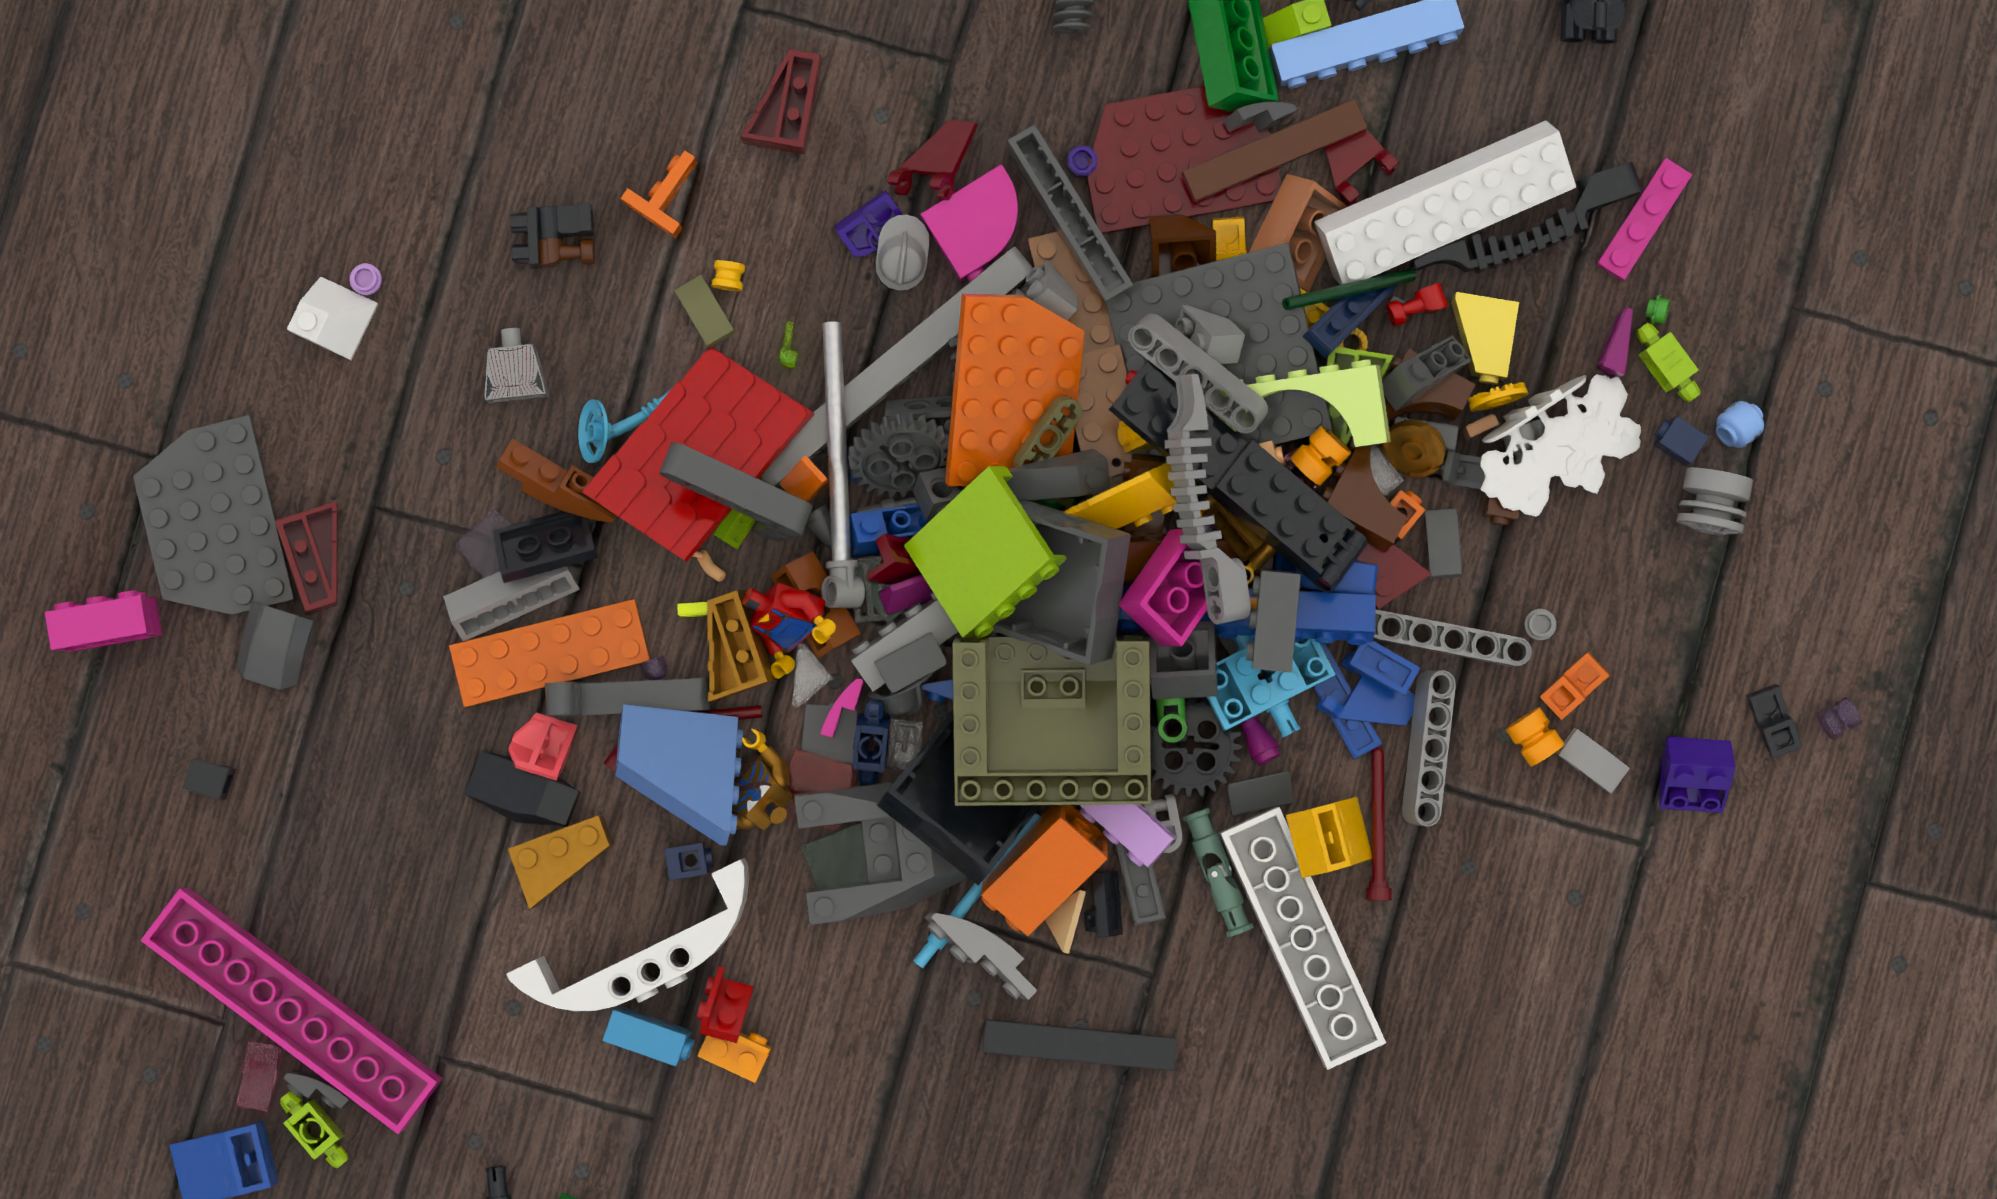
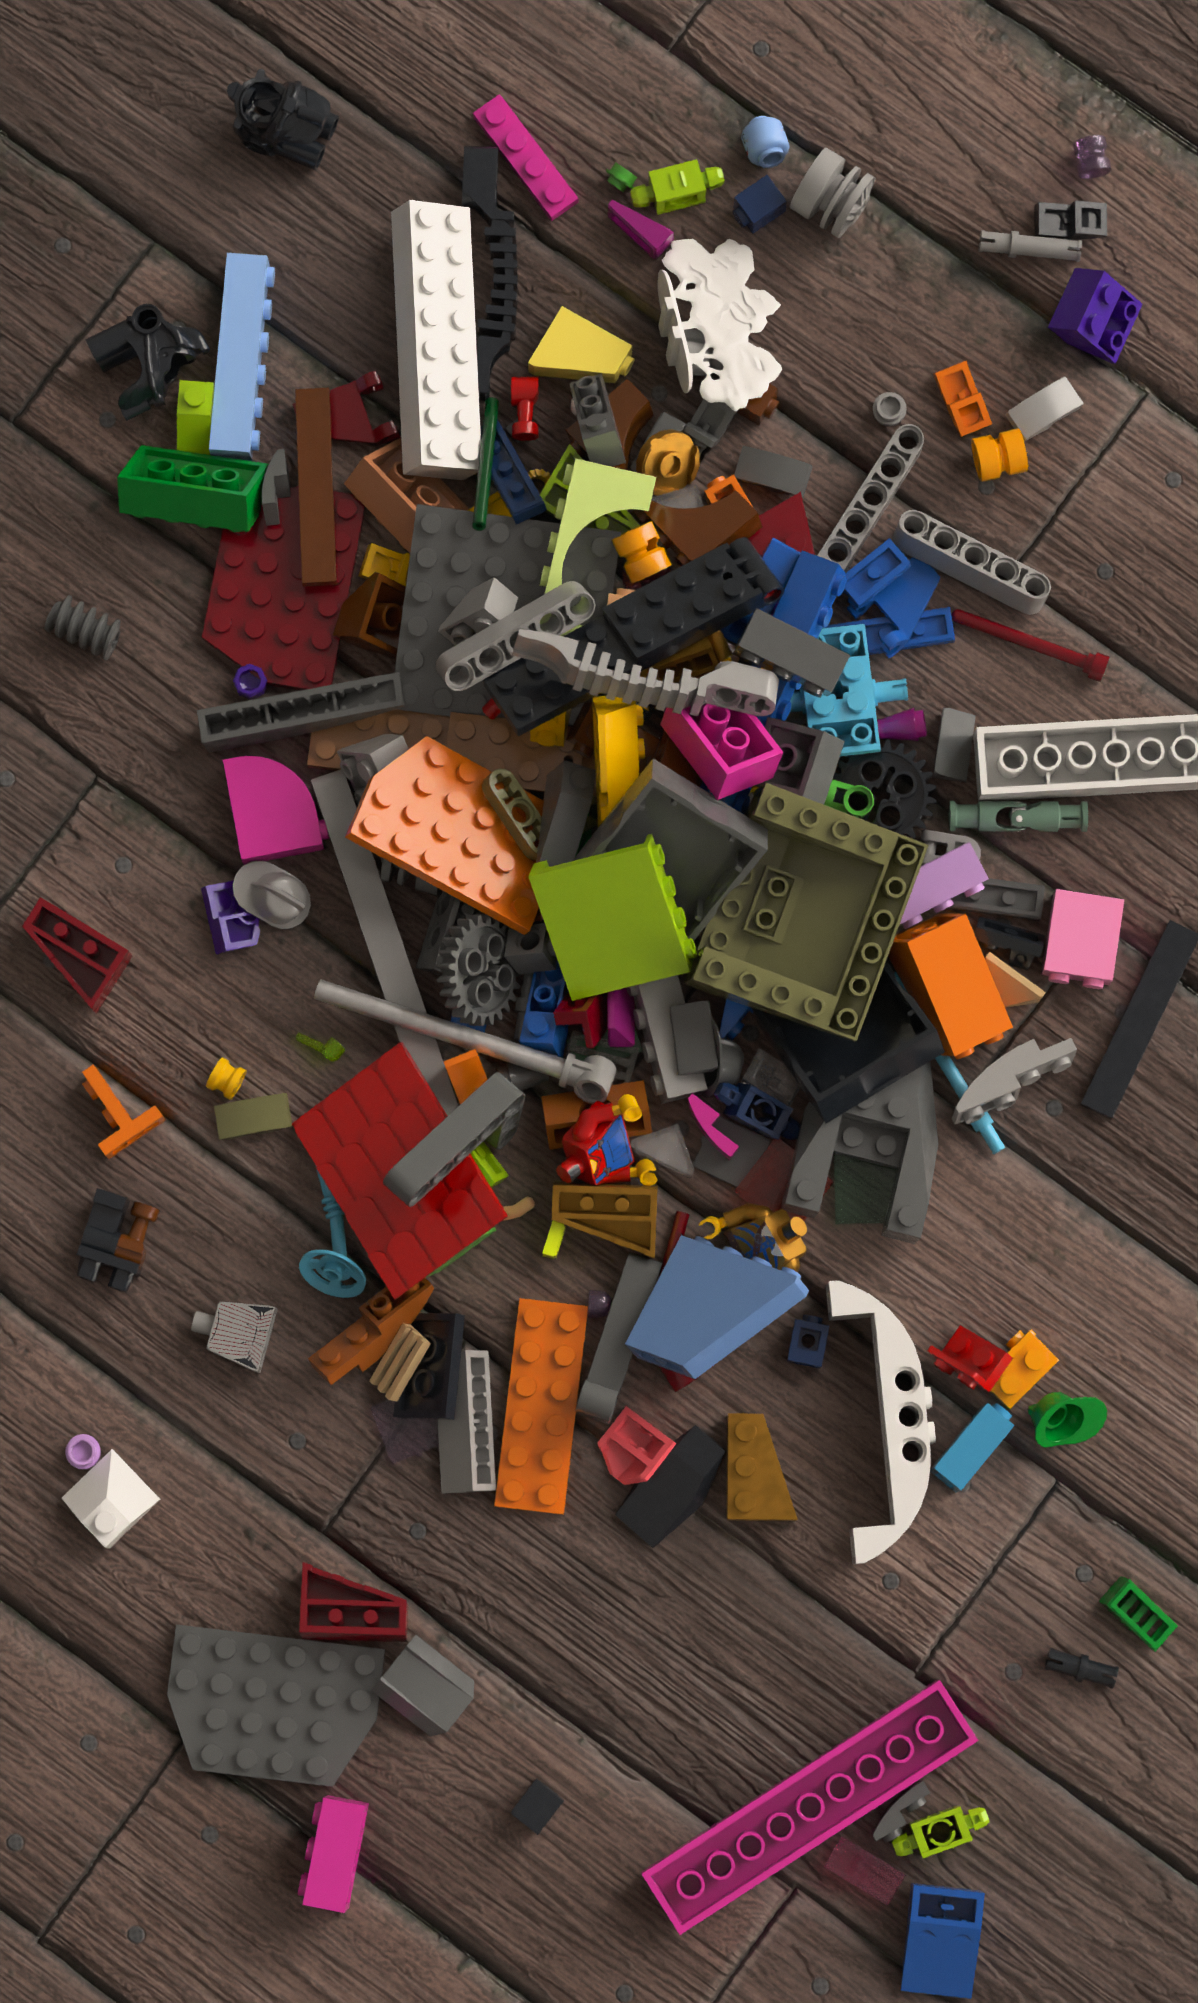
camera: 65 degrees left, 5 degrees down
(542, 514) = (397, 1359): none -> tan tile
(704, 1107) = (1066, 1419): none -> green piece
(936, 157) = (188, 821): dark red flag -> none
(1130, 968) = (1082, 938): none -> bright pink brick
(1329, 837) = (1025, 691): yellow slope -> none
(1480, 426) = (670, 392): medium nougat tile -> none
(1497, 397) = (648, 362): yellow wheel -> none
(1736, 693) = (1016, 244): none -> light grey pin

